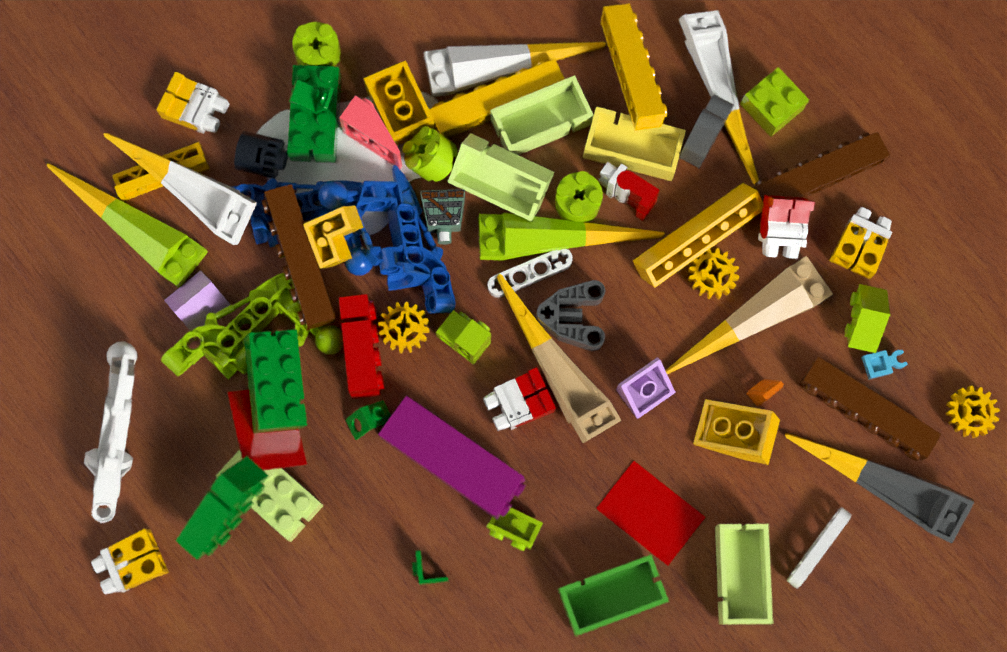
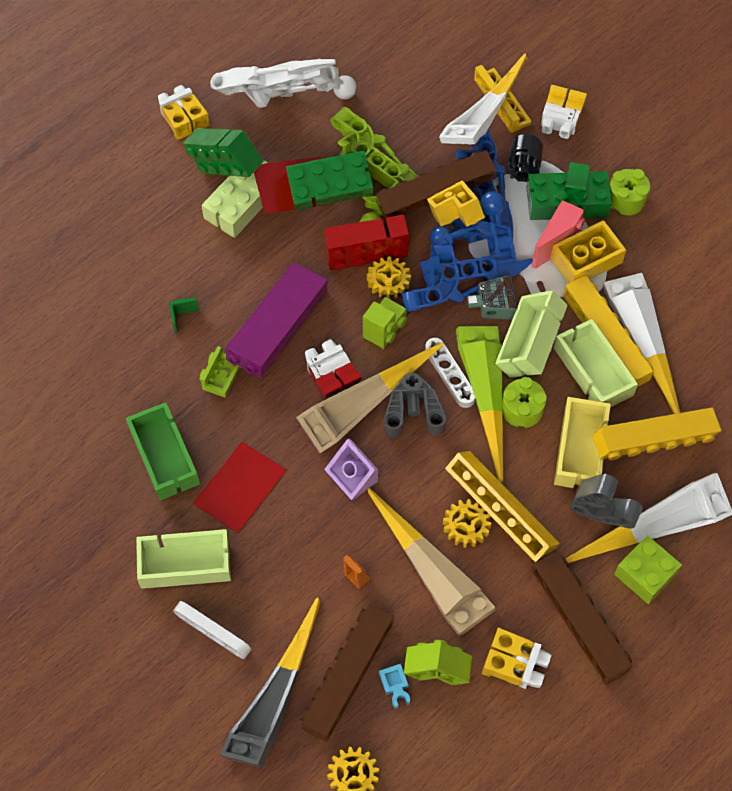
camera: 90 degrees right, 15 degrees down
(162, 246) = (439, 105): lime plate -> none
(196, 300) = (397, 132): lavender slope -> none
(370, 417) = (309, 259): green bracket -> none
(430, 154) = (543, 276): lime brick -> none
(629, 189) = (530, 452): red hips -> none
(737, 431) = (317, 552): yellow slope -> none
(784, 224) = (513, 581): hips -> none

